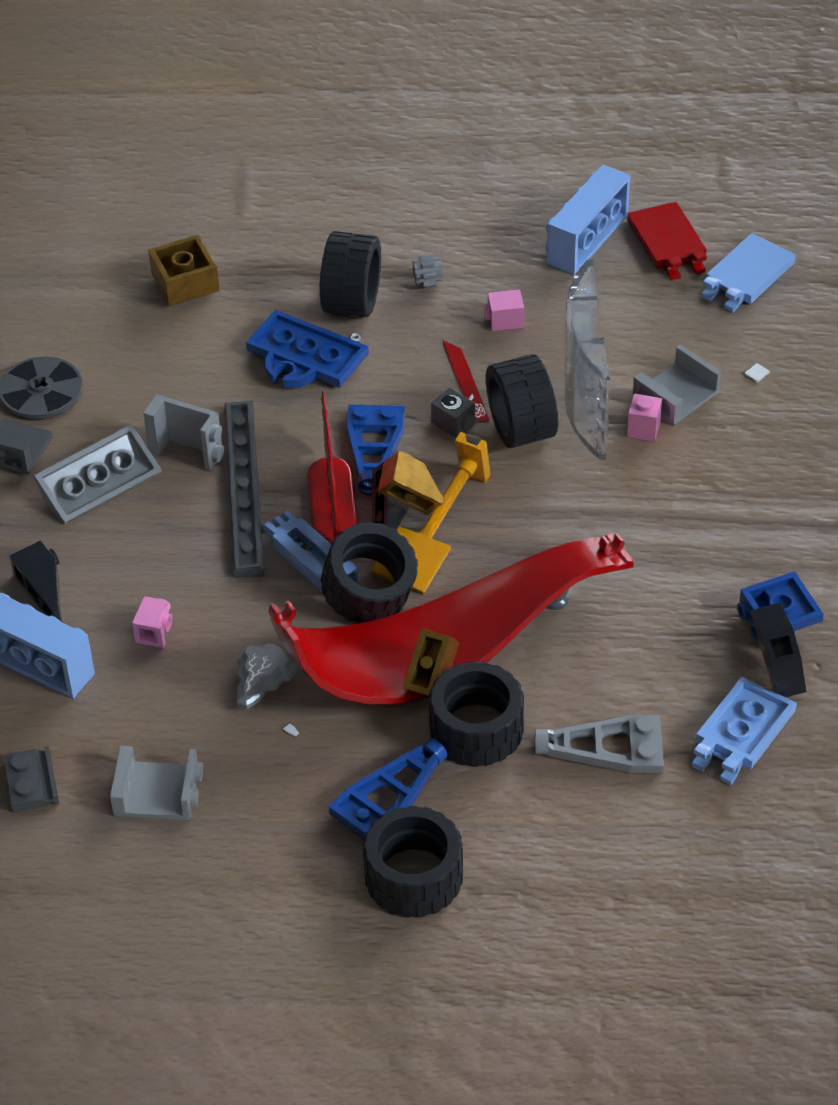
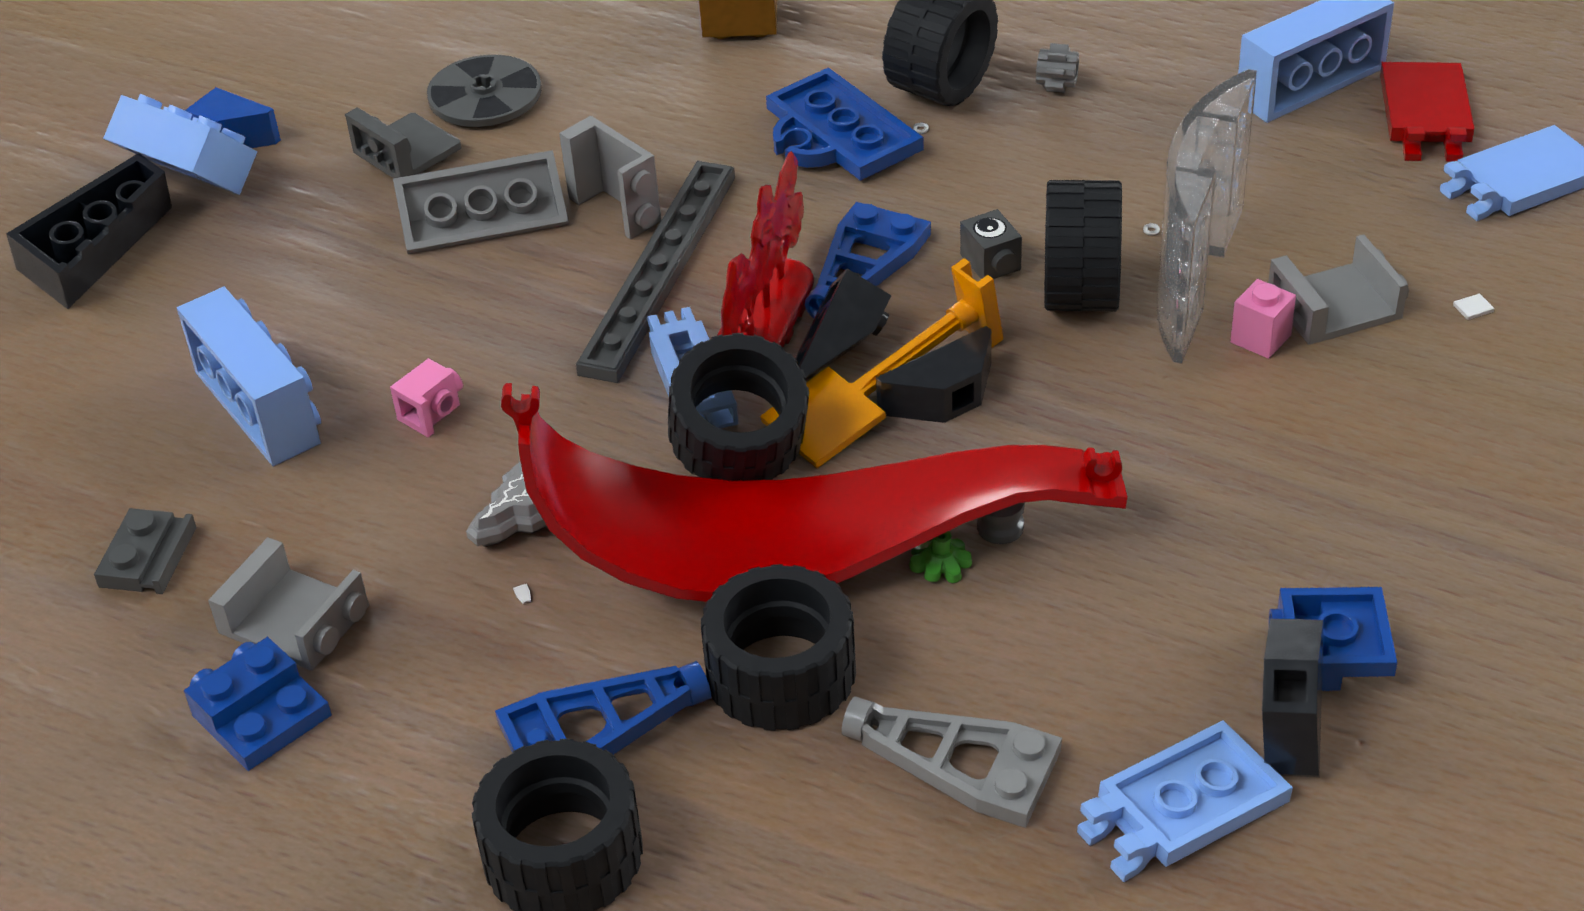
camera: 25 degrees right, 5 degrees down
(38, 574) = (327, 307): black slope -> none
(173, 850) = (255, 702): none -> blue plate
(409, 483) = (861, 309): pearl gold slope -> none
(430, 659) = (750, 541): pearl gold slope -> none
(466, 379) = (1034, 238): red sticker -> none
(473, 515) = (940, 382): none -> black slope
(504, 310) = (1137, 138): bright pink brick -> none
(535, 629) = (939, 557): none -> bright green plant

